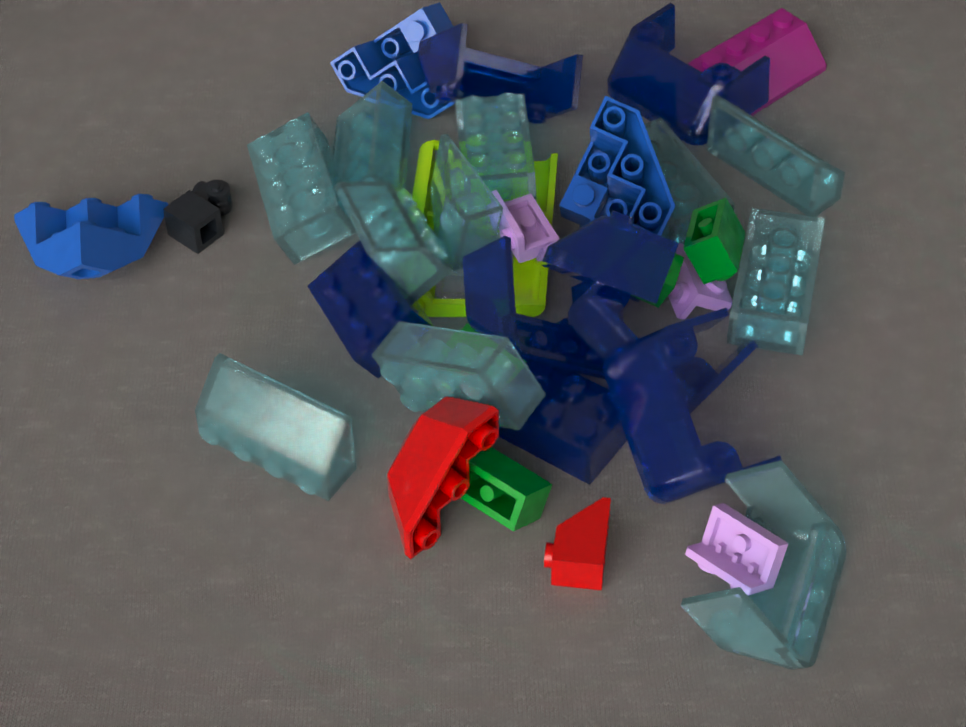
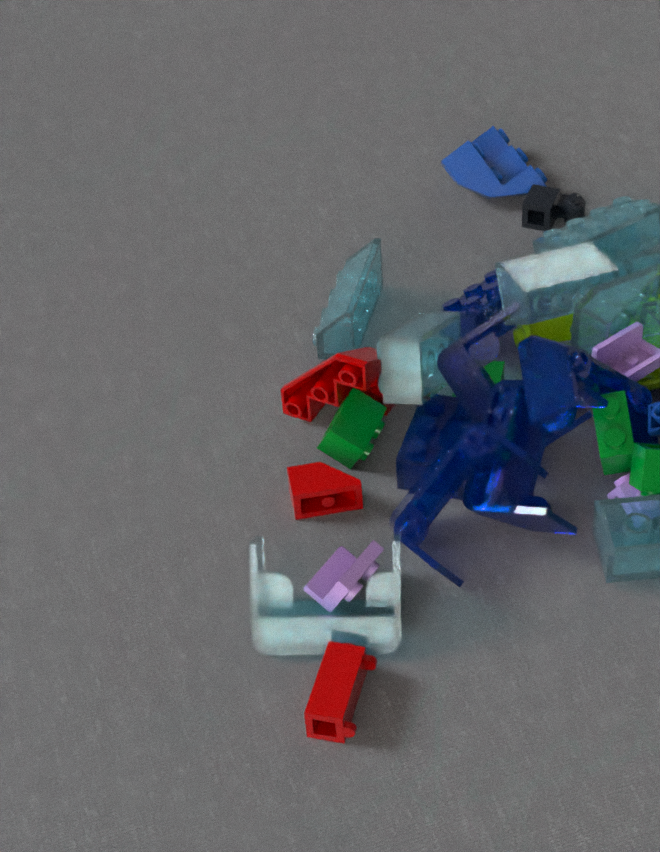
camera: 75 degrees right, 5 degrees down
(895, 606) = (337, 692): none -> red brick

